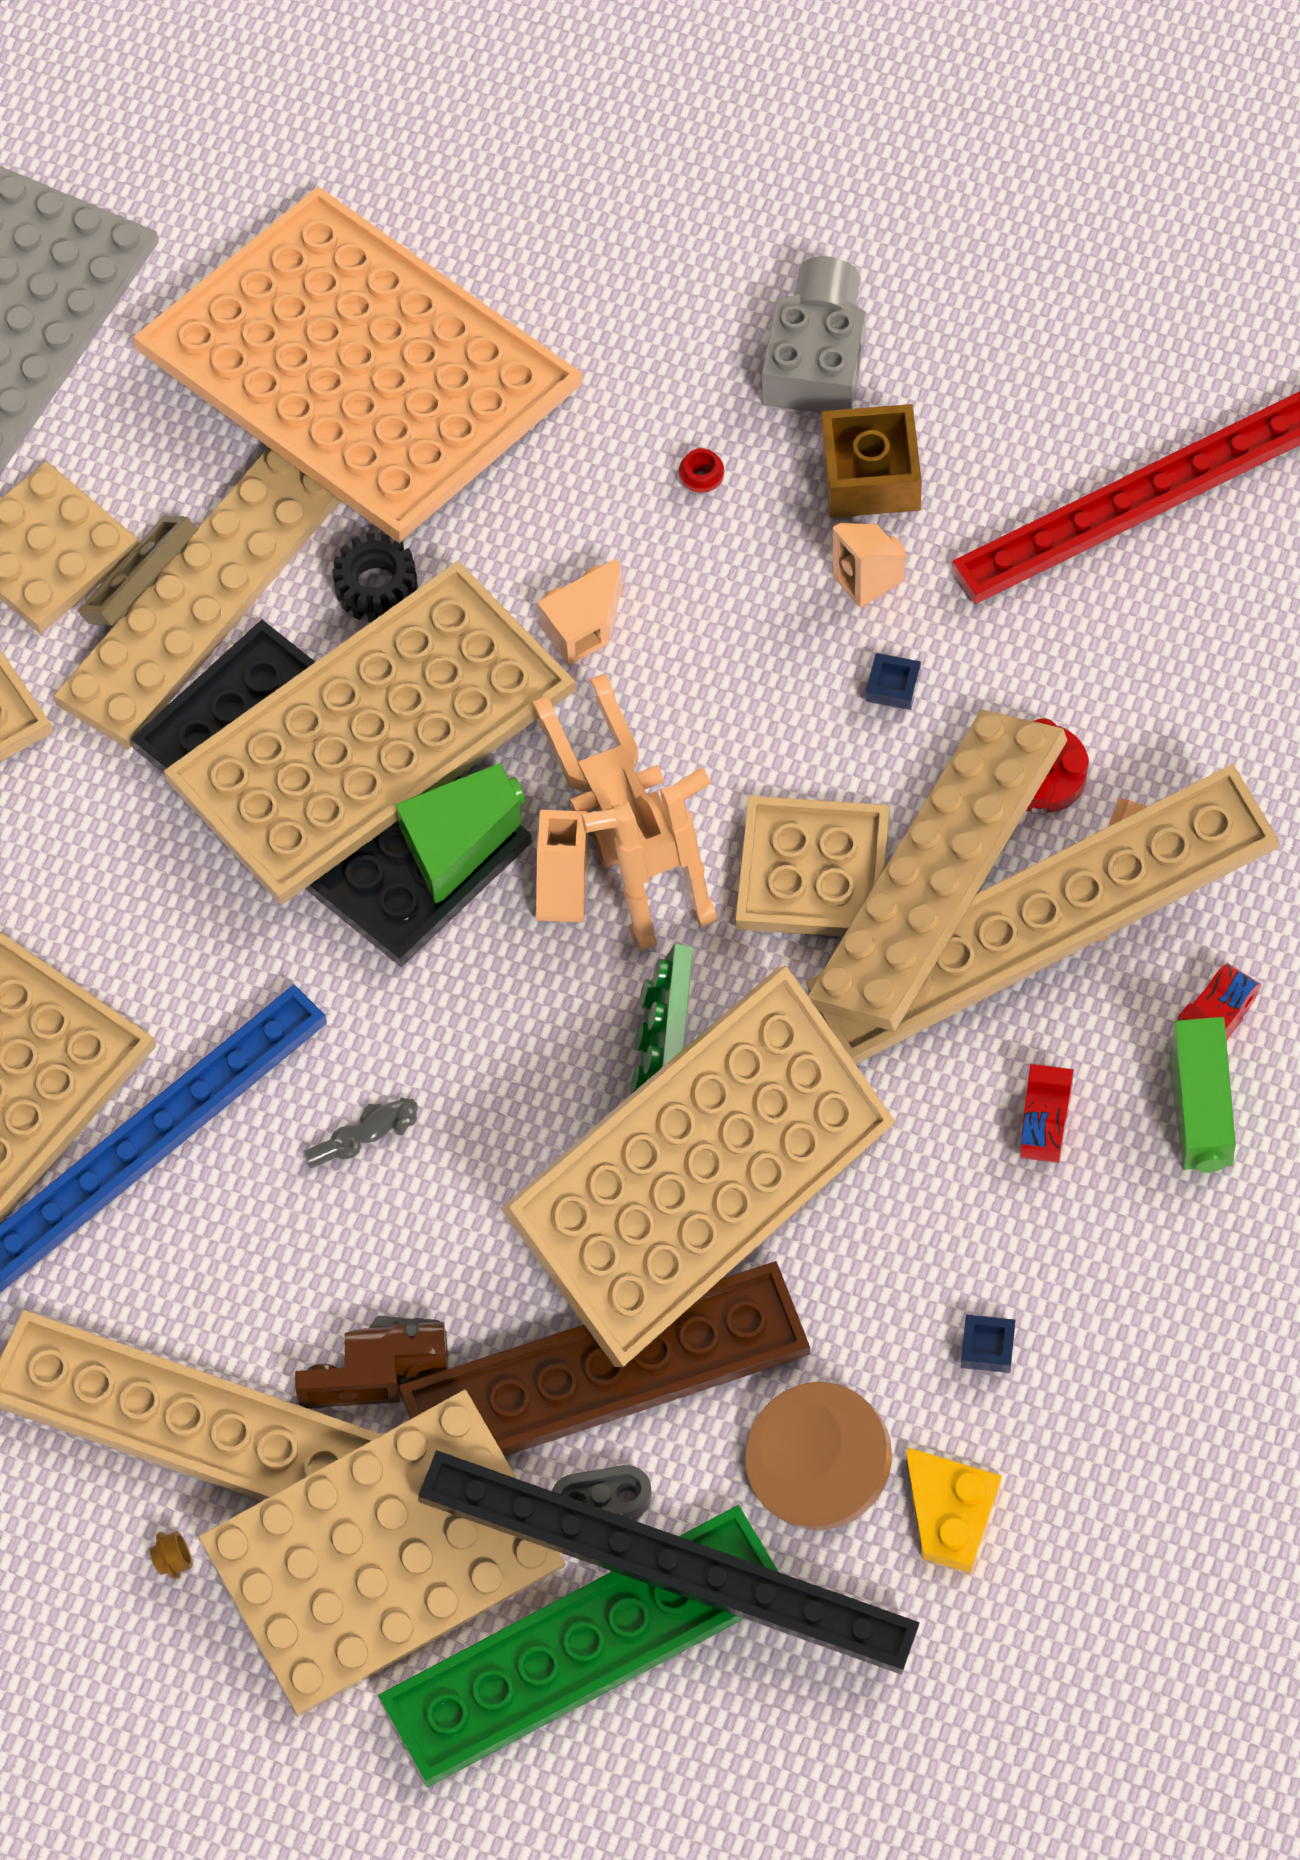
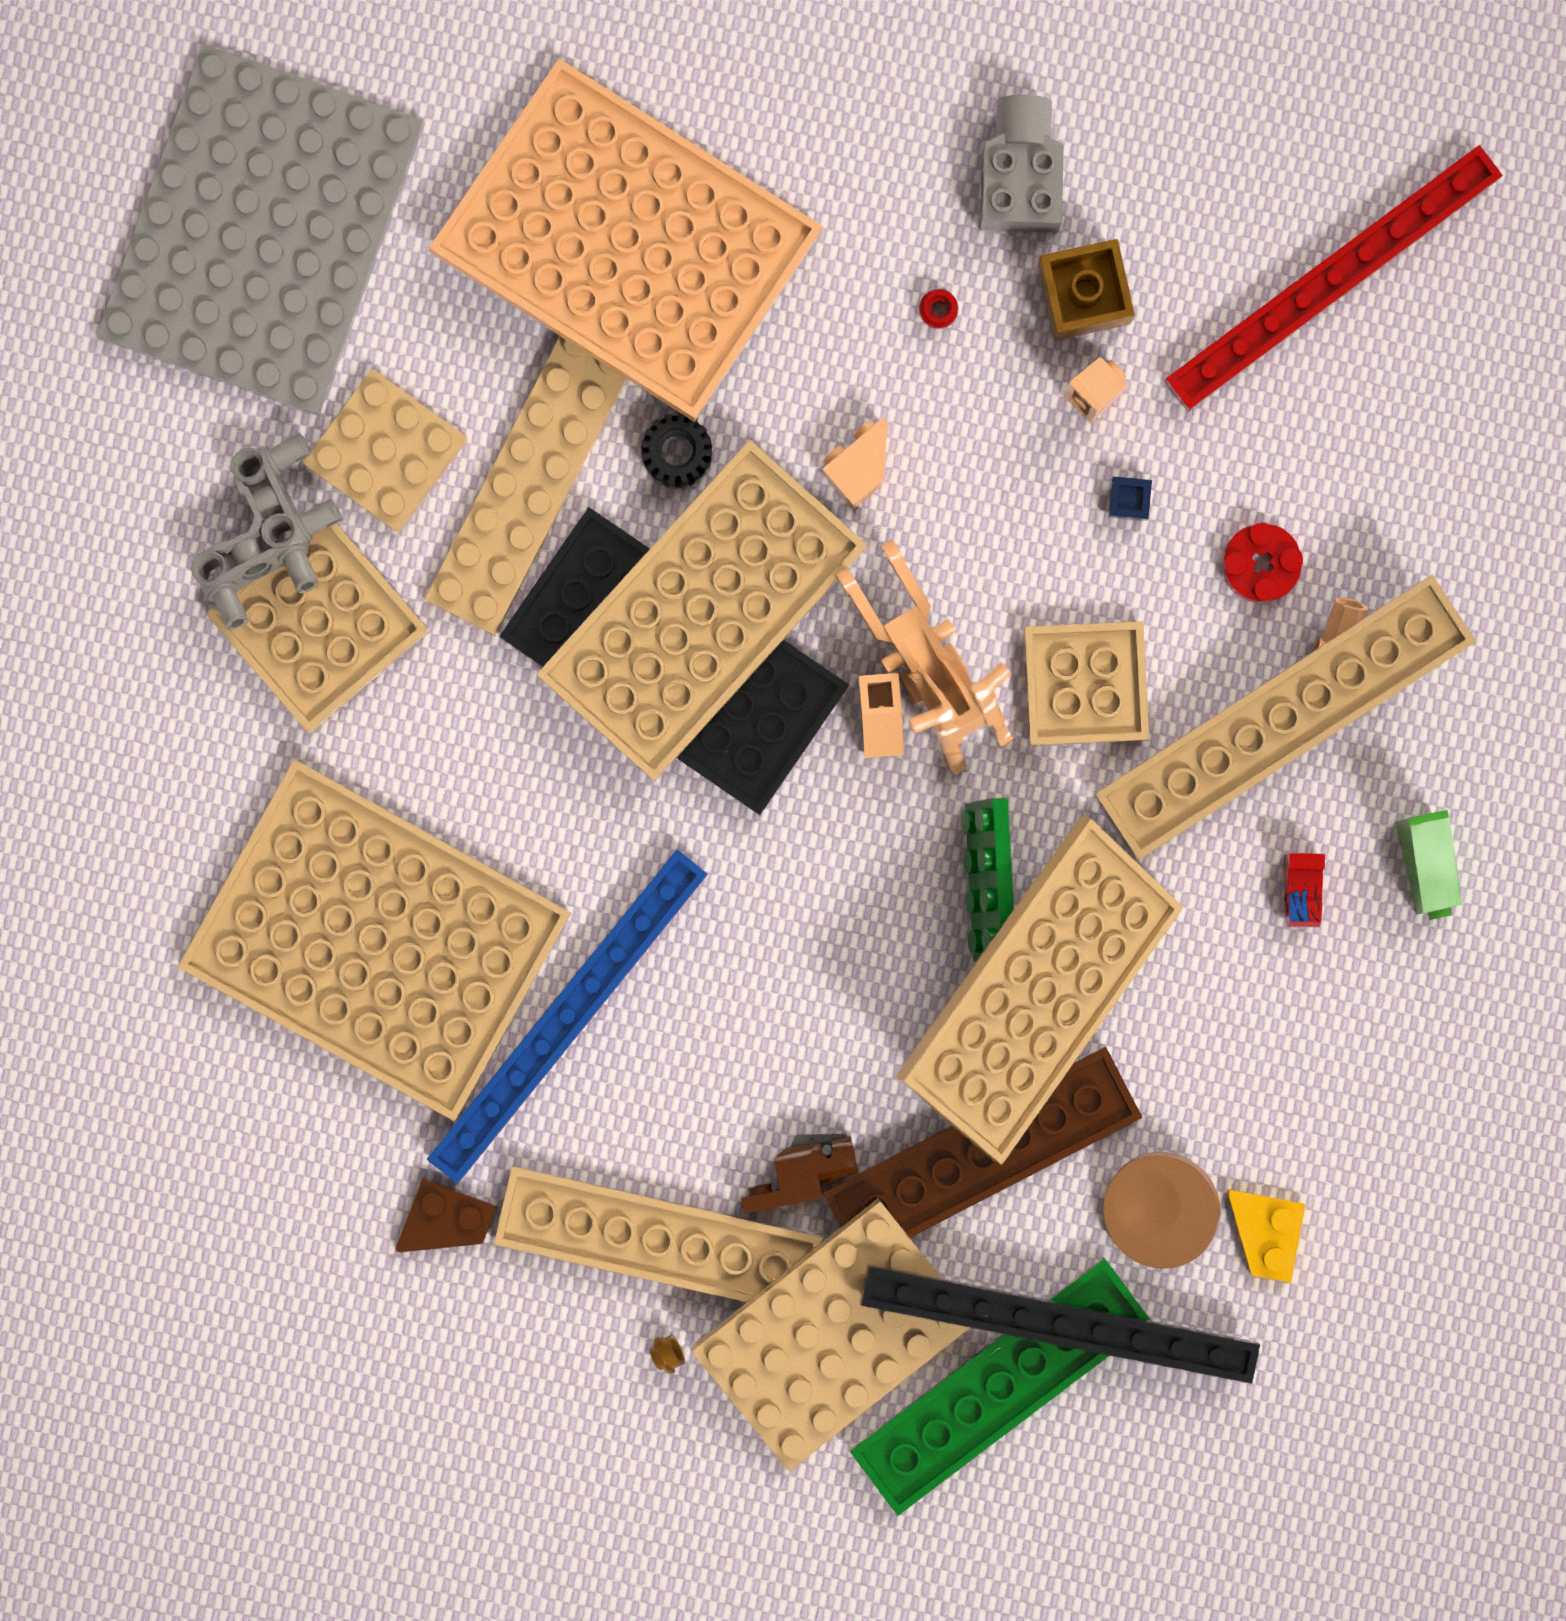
camera: 10 degrees left, 25 degrees up
(138, 571) = (473, 469): dark tan plate -> none
(375, 1123) = (764, 958): dark grey animal -> none
(459, 826) = (791, 694): bright green slope -> none
(604, 1485) = (995, 1262): dark grey plate -> none
(937, 870) = (1193, 683): tan plate -> none
(988, 1343) = (1281, 1093): dark blue plate -> none
(1226, 996) = (1432, 774): red leg -> none

